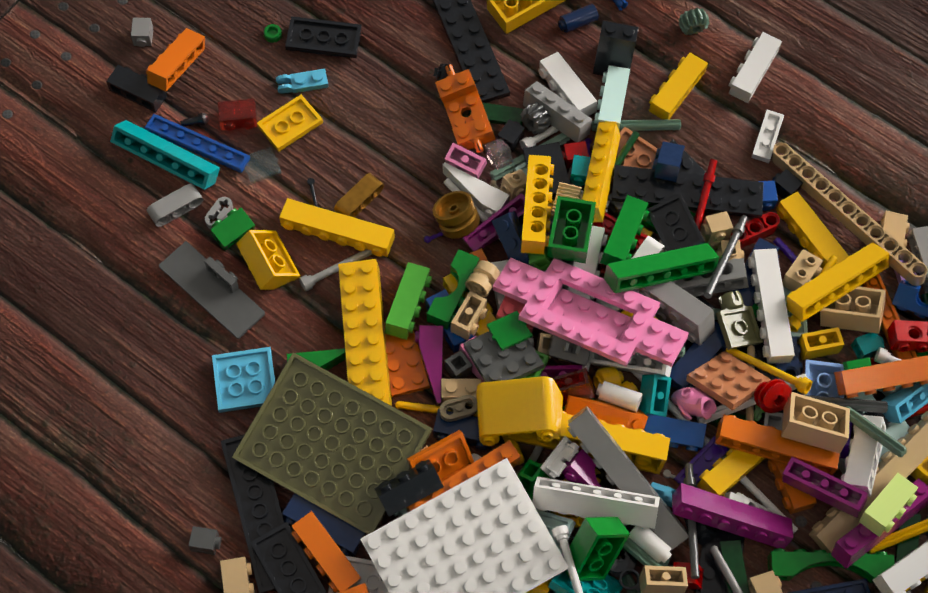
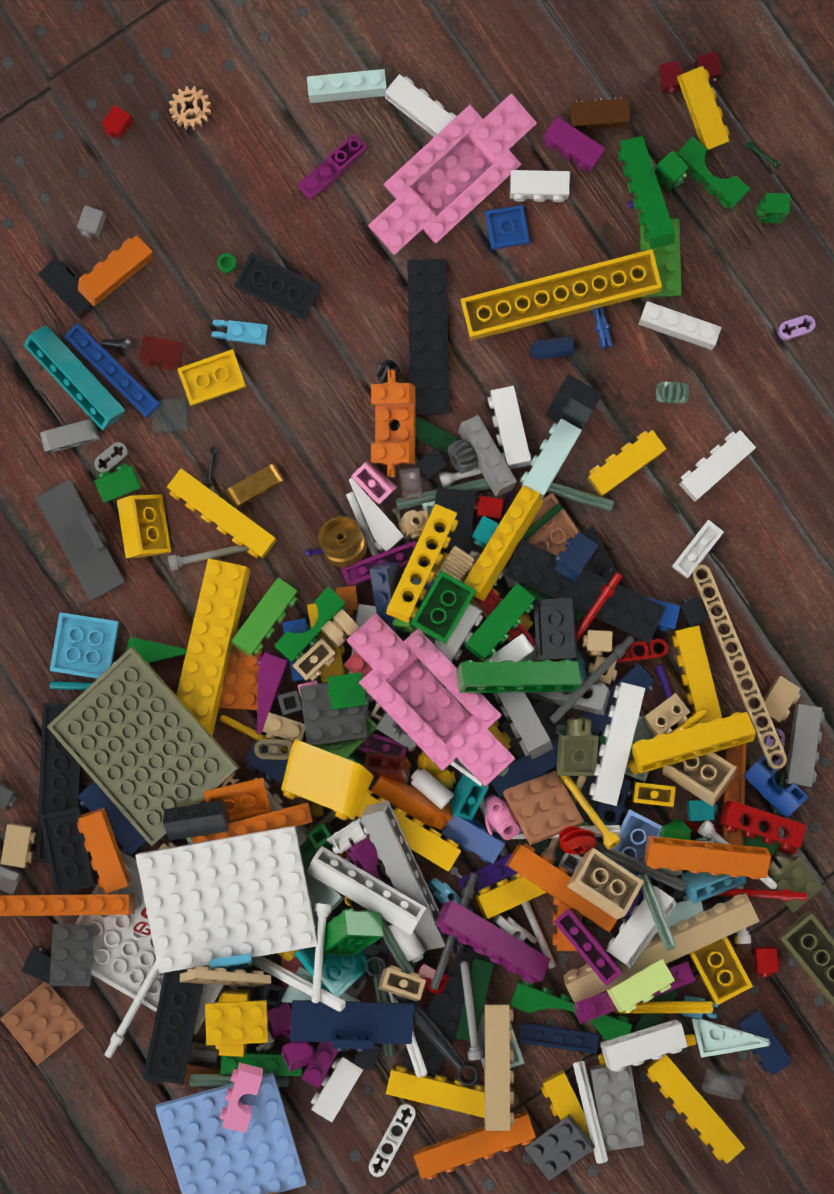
camera: 25 degrees right, 20 degrees up
(238, 421) = (69, 685): none -> teal bar

